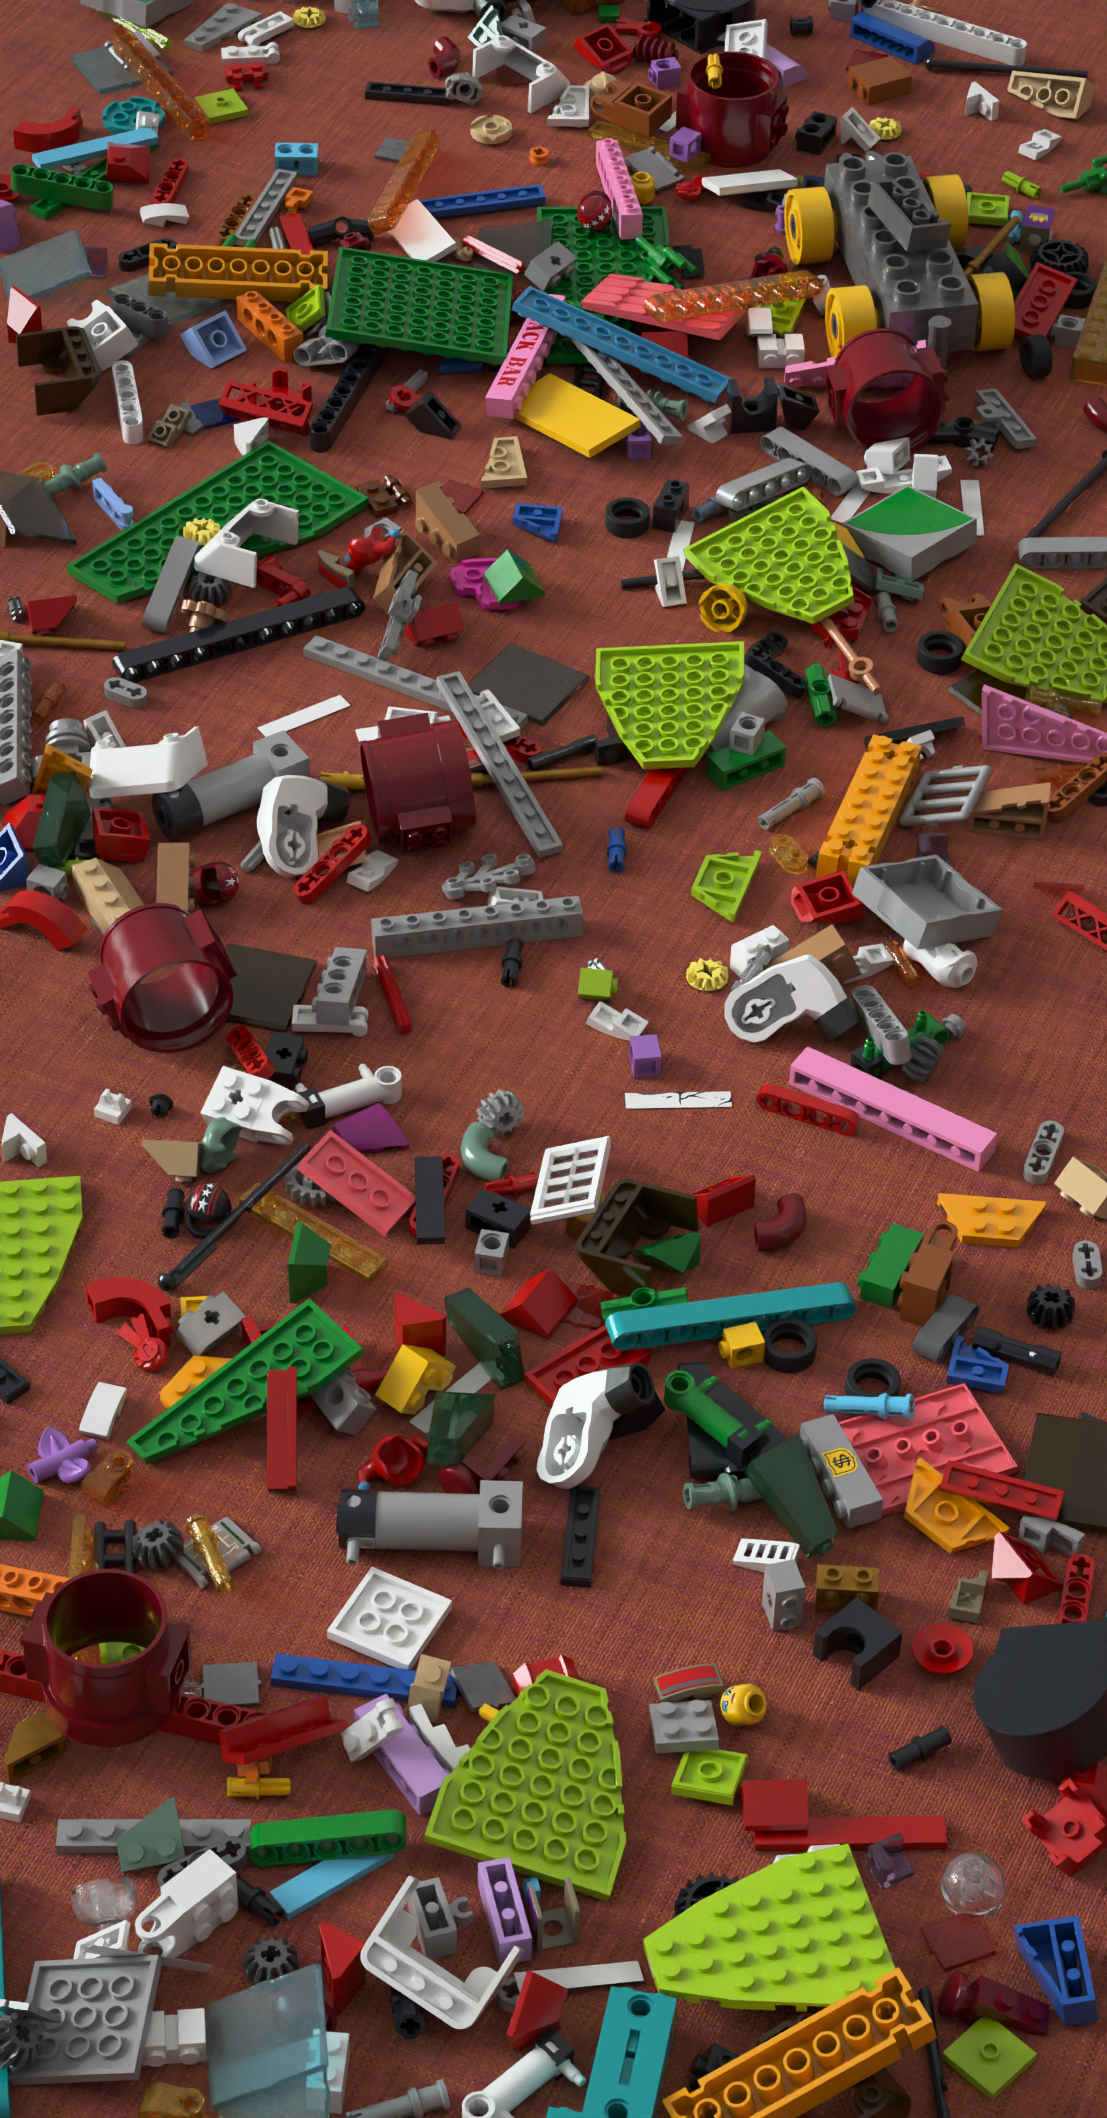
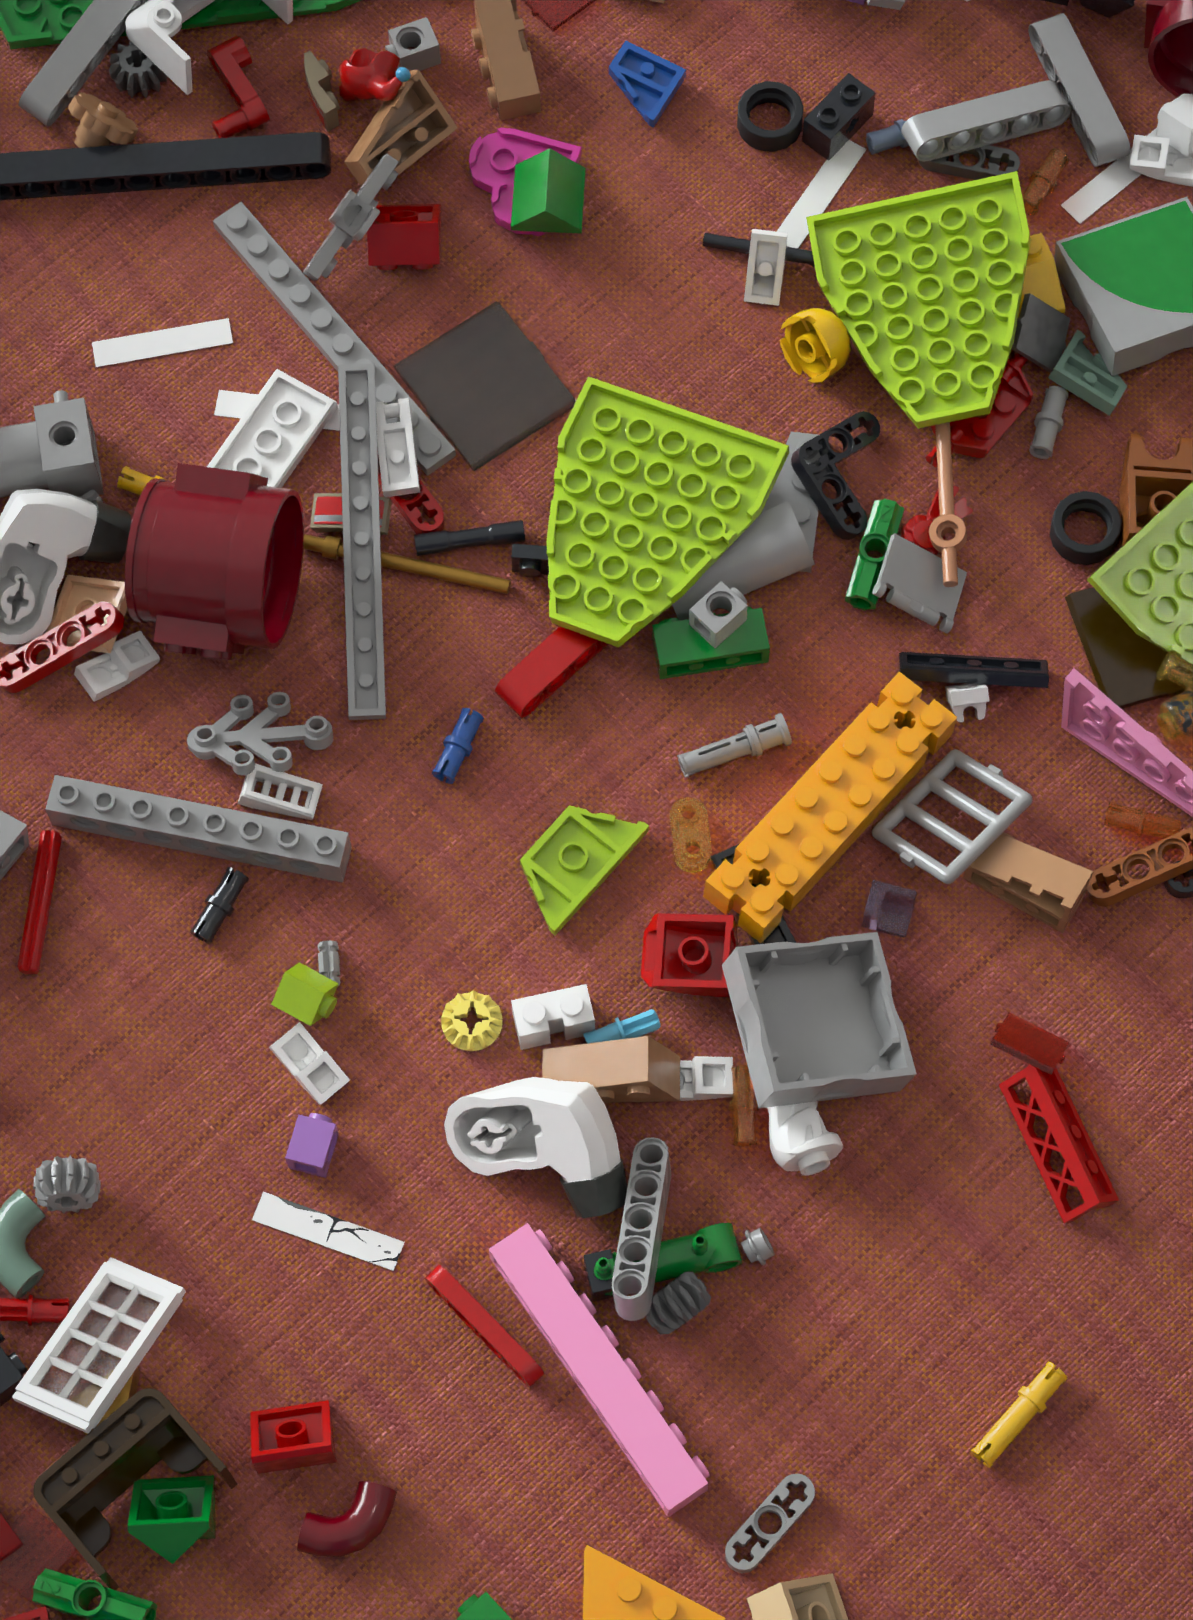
camera: 25 degrees right, 25 degrees up
(753, 968) = (522, 1053): light grey axle -> none

